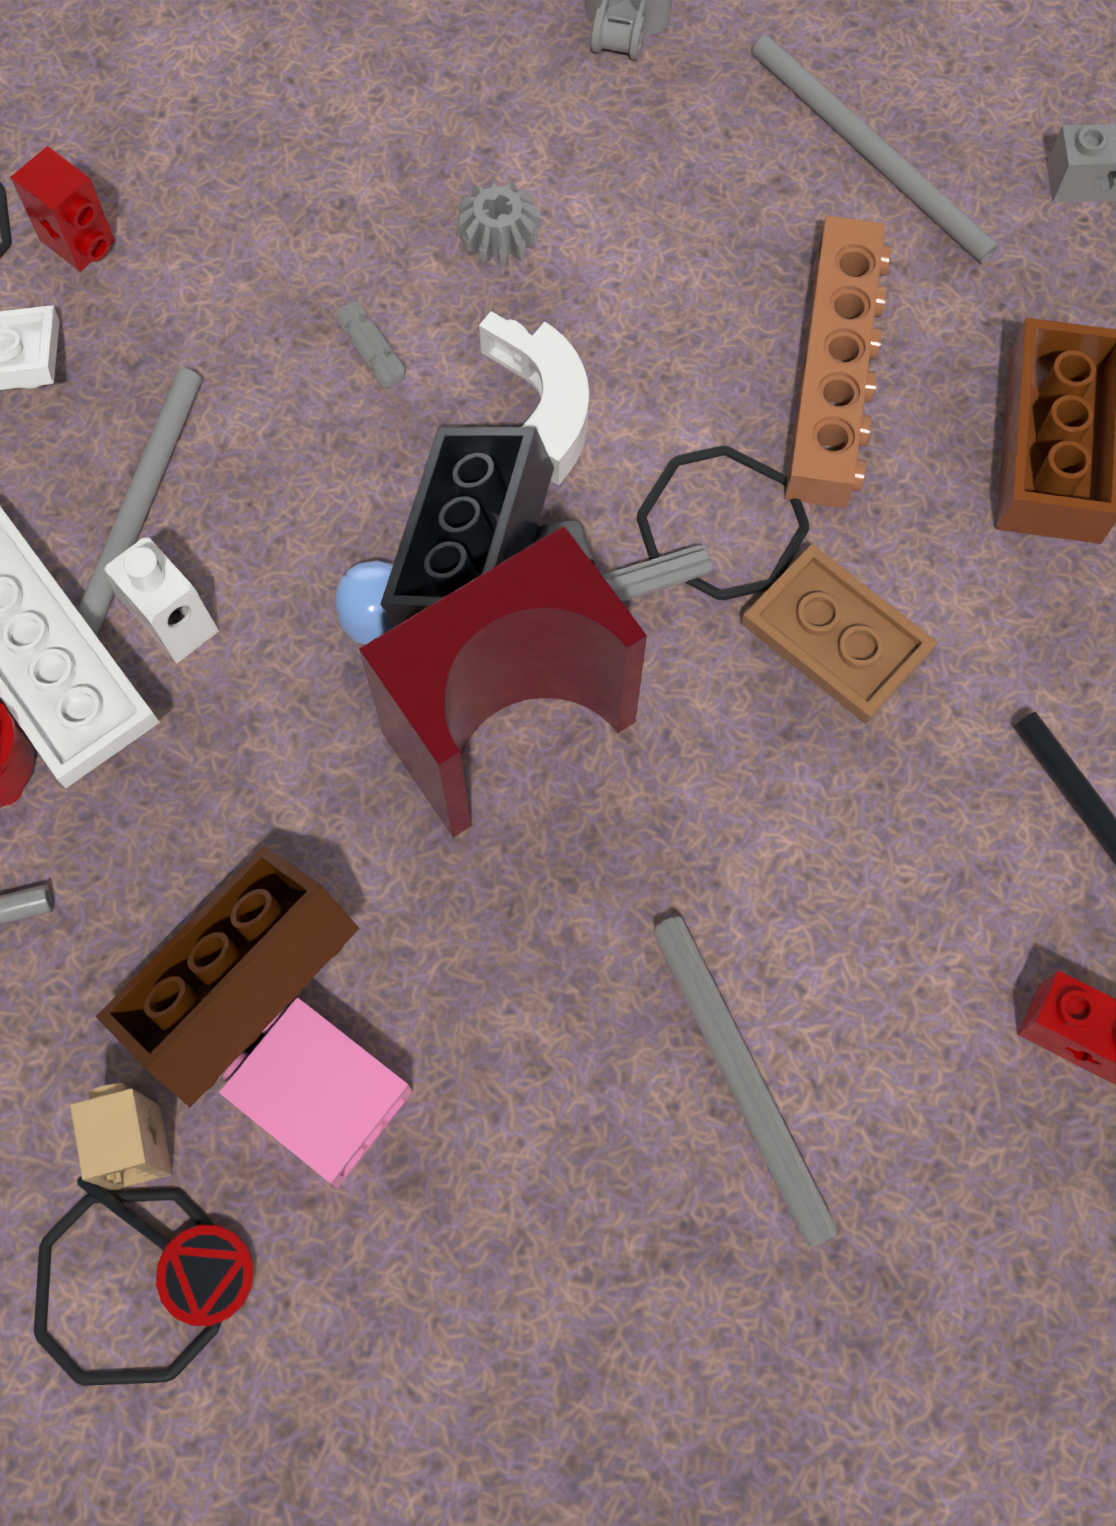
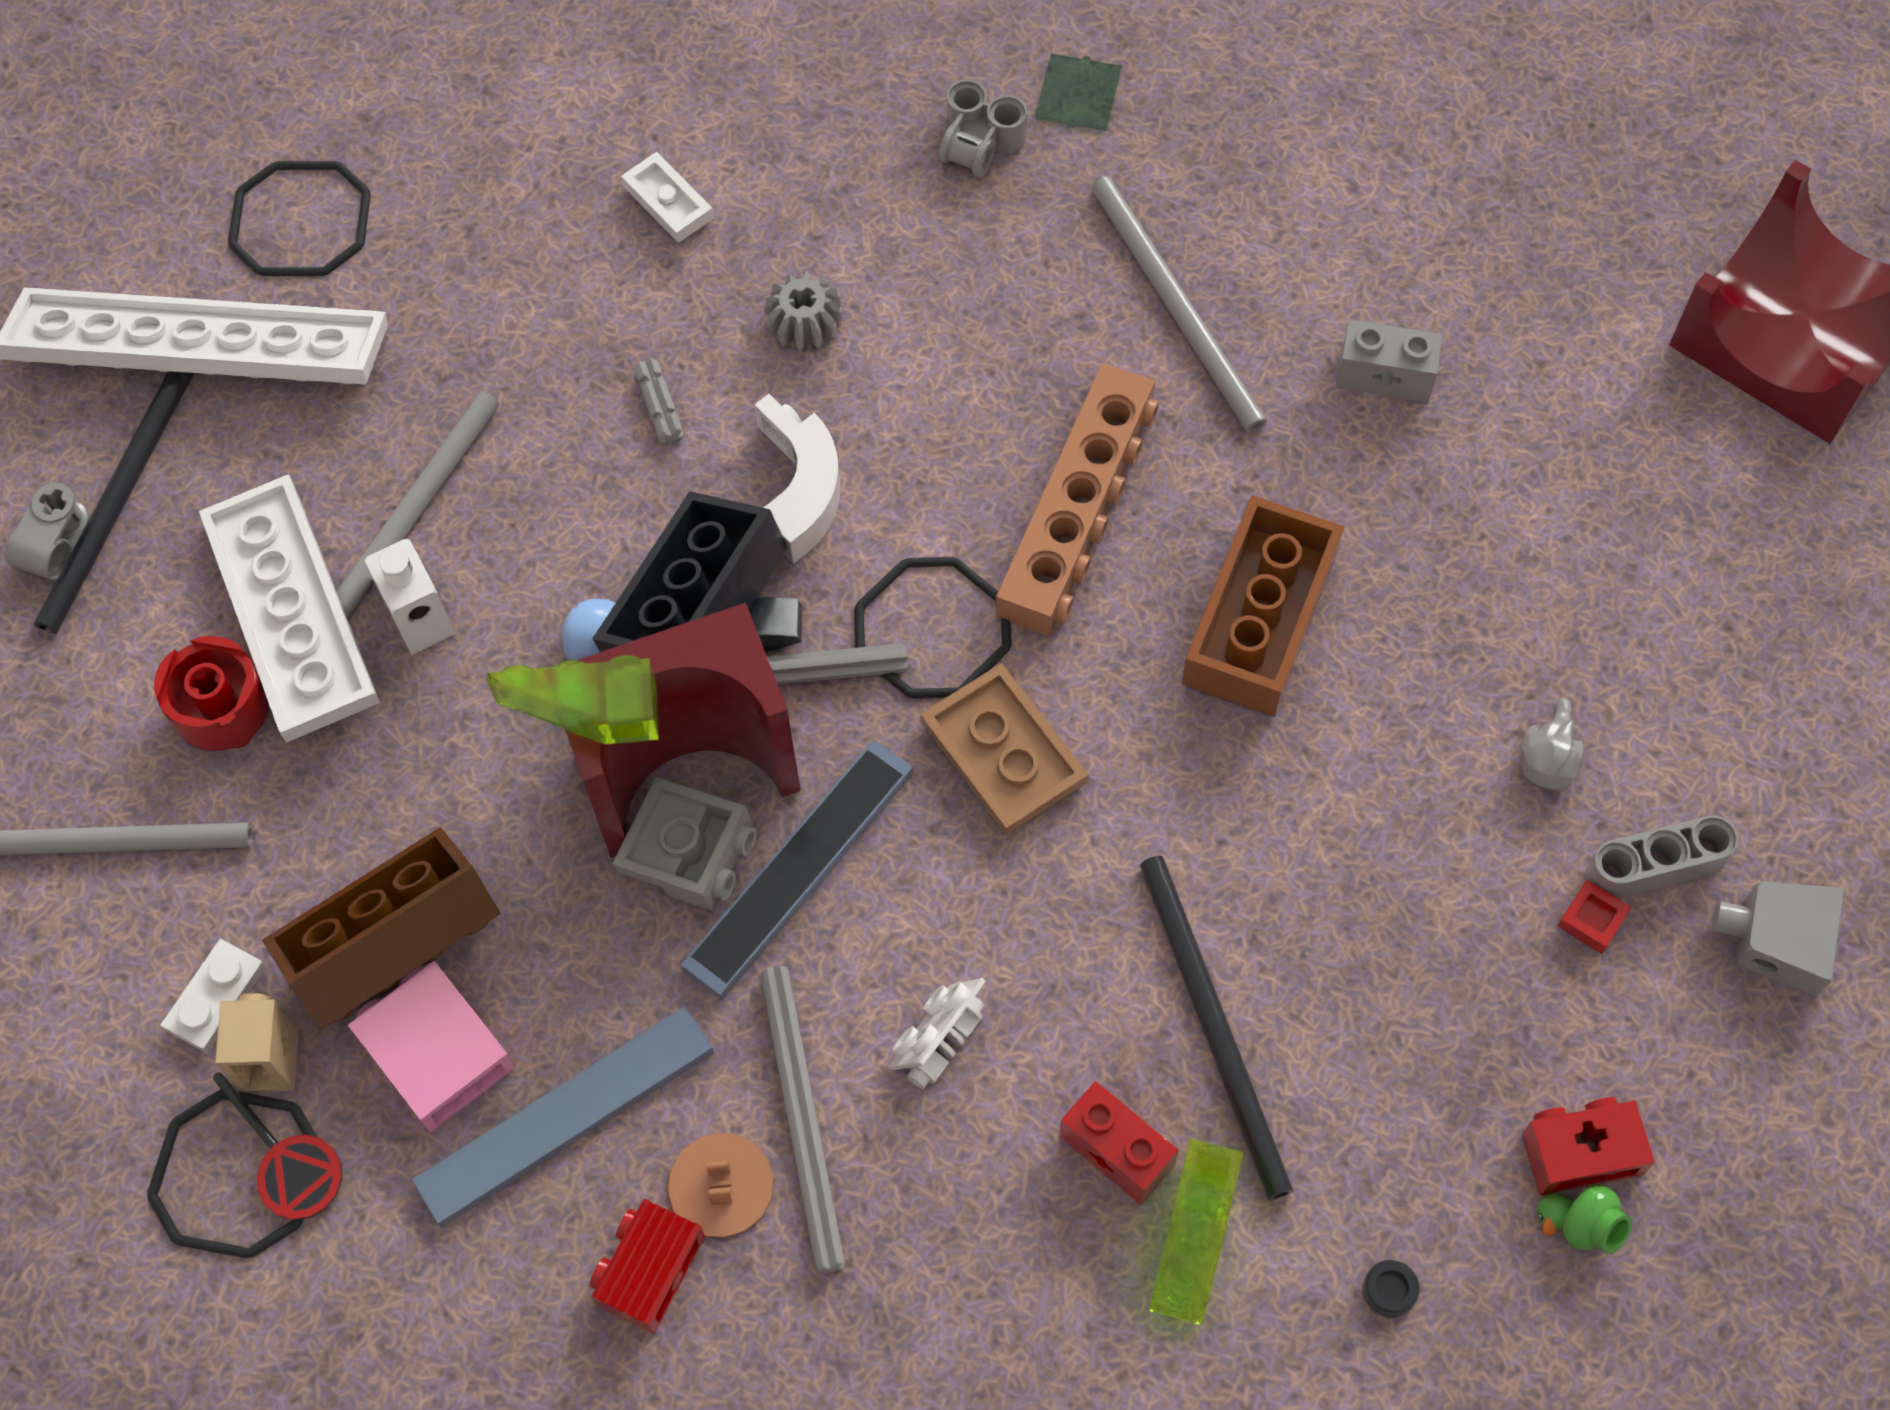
camera: 15 degrees right, 5 degrees down
(53, 1081) = (220, 978): none -> white plate
(63, 208) = (414, 228): red brick -> none
(322, 134) = (667, 197): none -> white plate
(425, 670) = (595, 700): none -> clear neon green slope
(479, 1139) = (562, 1116): none -> sand blue tile
(536, 805) = (686, 843): none -> light grey plate
(625, 1286) = (646, 1265): none -> red brick
(656, 810) = (796, 869): none -> black tile
(674, 1173) = (721, 1184): none -> nougat piece
(866, 949) = (952, 1015): none -> white hinge

